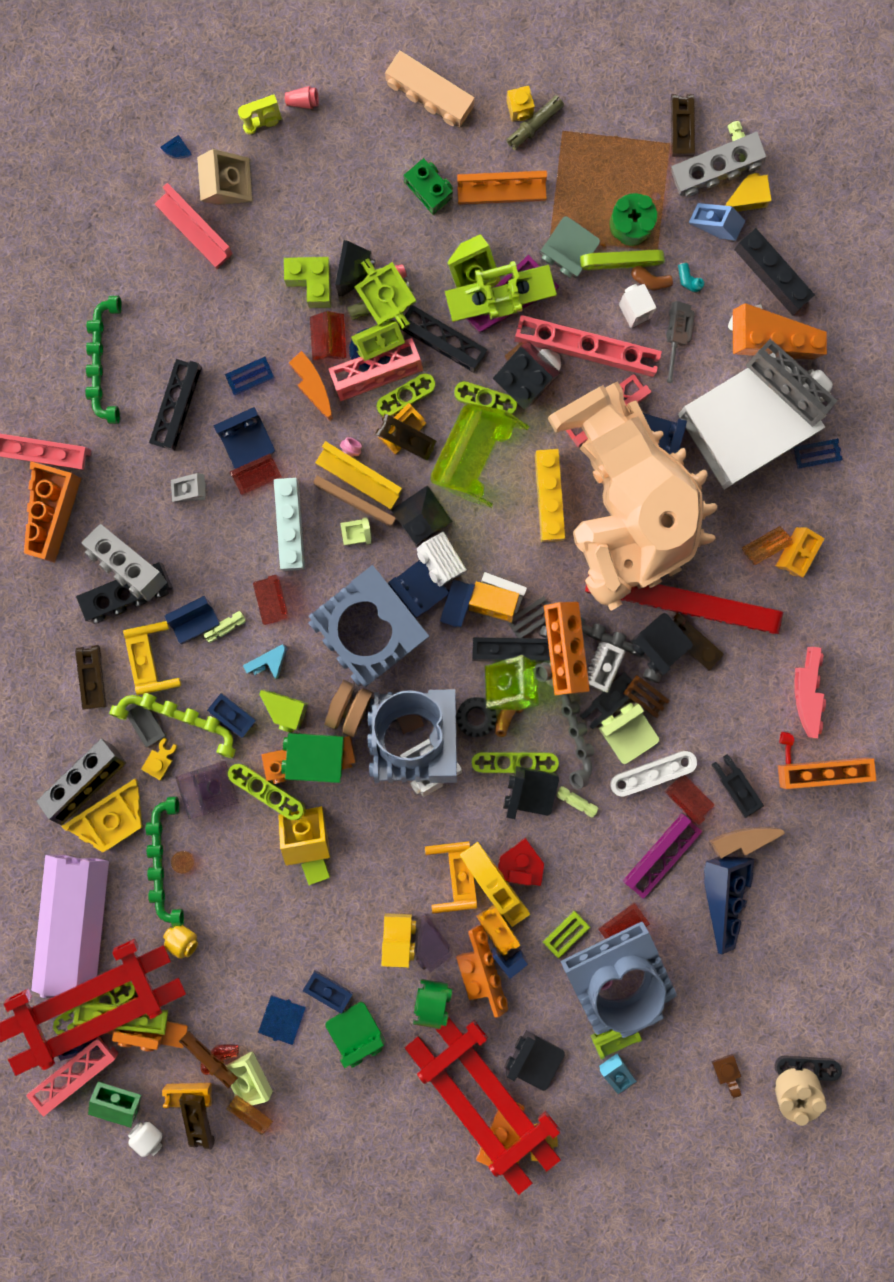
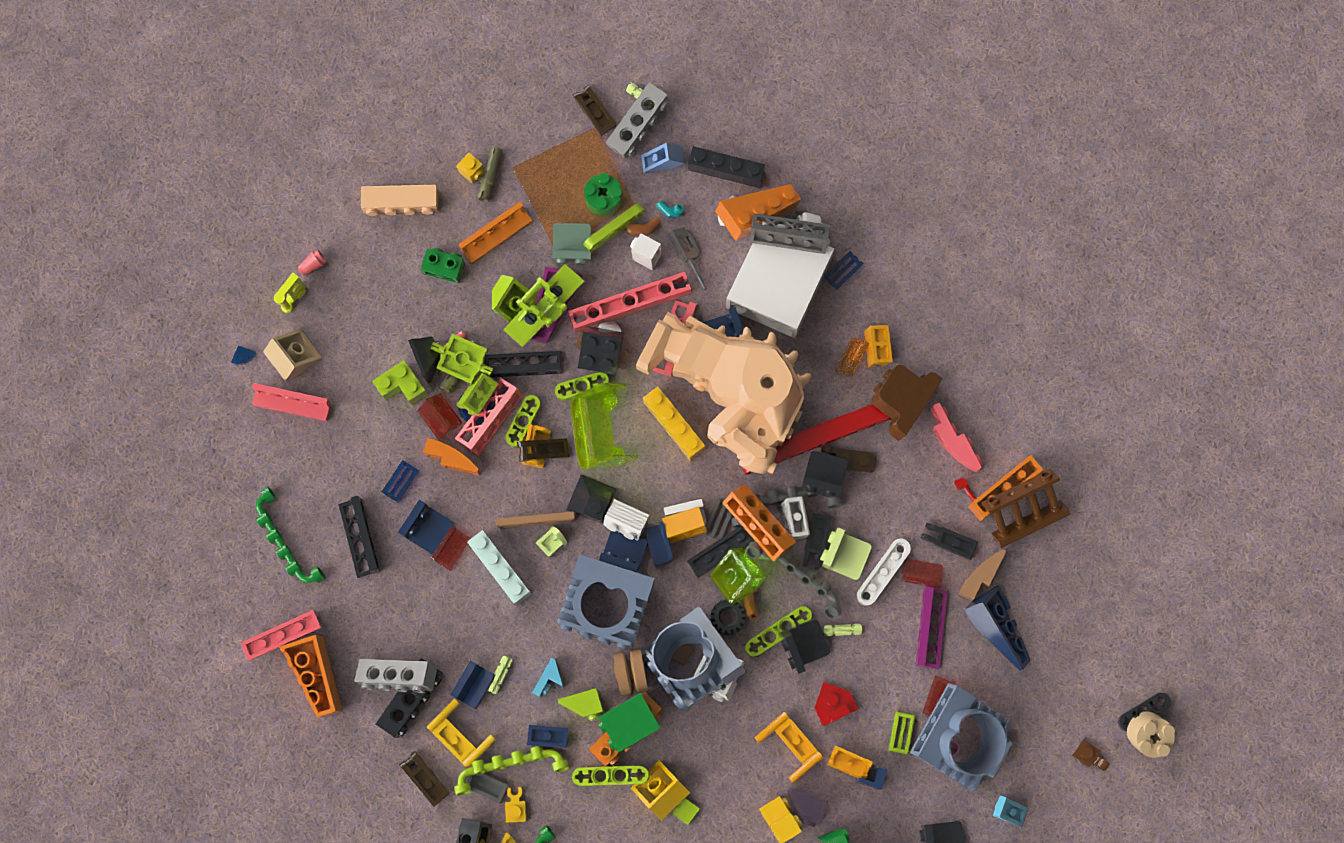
camera: 25 degrees left, 10 degrees down
(188, 488) = (408, 590): light grey slope -> none
(206, 790) = (565, 804): clear purple slope -> none
(270, 600) = (521, 632): clear red panel -> none
(351, 447) = (507, 483): bright pink plate -> none
(358, 476) = (527, 499): yellow fence -> none
(481, 974) = (858, 804): orange bracket -> none
(494, 884) = (824, 729): yellow slope -> none
(612, 1041) = (990, 788): lime hinge -> none
(658, 705) = (854, 520): reddish brown tile -> none
(751, 194) = (674, 125): yellow slope -> none
(790, 620) = (903, 397): none -> reddish brown brick
(829, 822) = (1037, 520): none -> reddish brown fence

